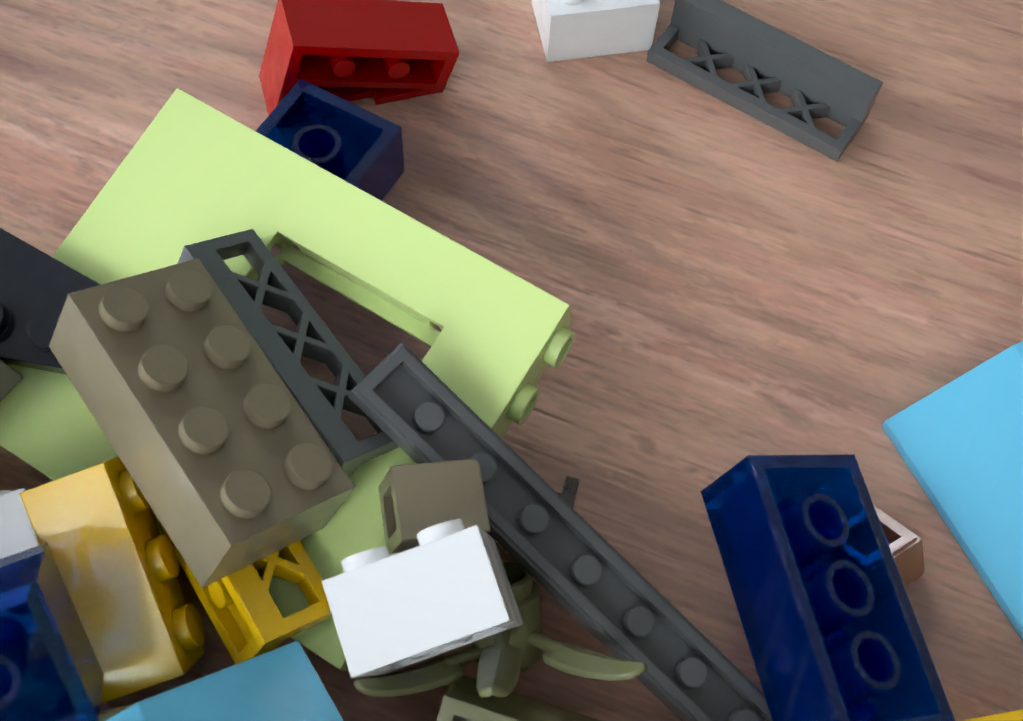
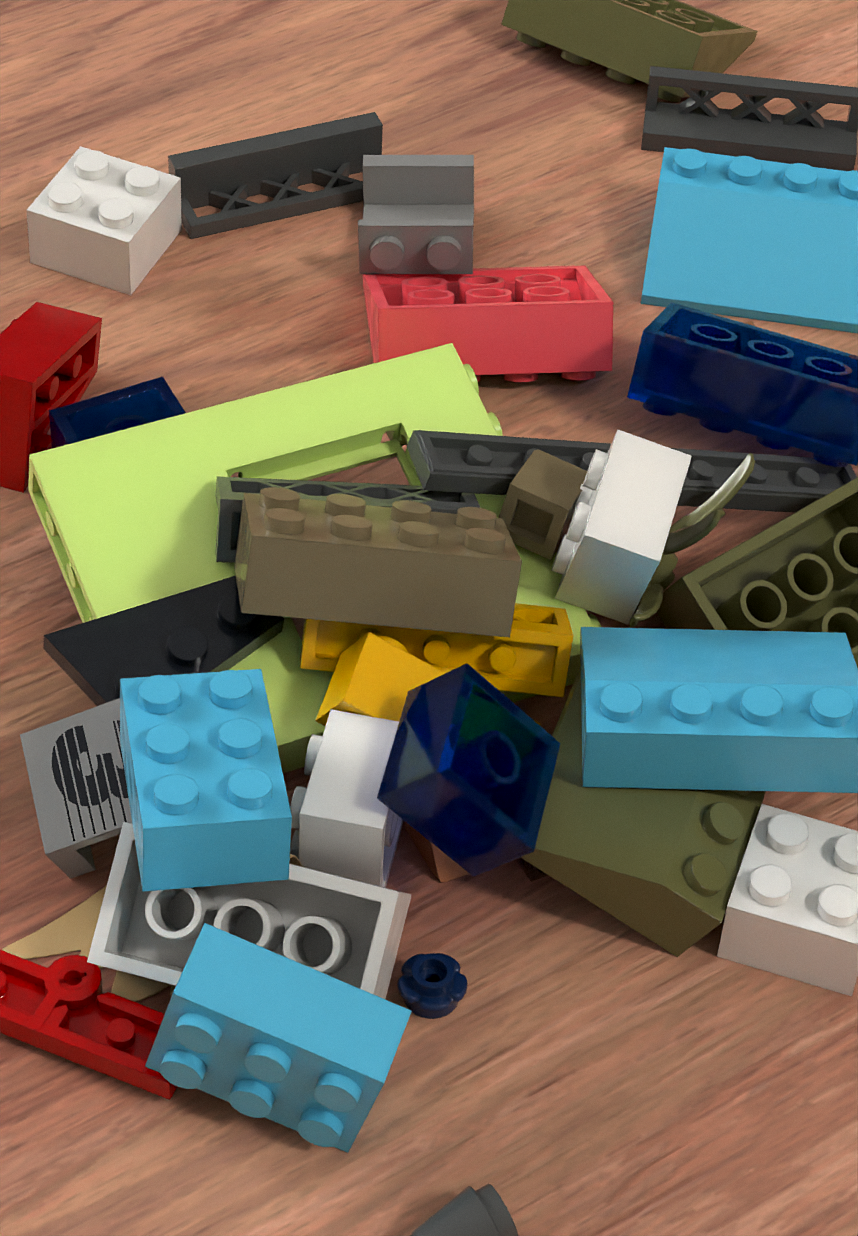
camera: 55 degrees left, 15 degrees down
(722, 317) = (496, 319): none -> coral slope
(802, 194) = (417, 214): none -> light grey panel

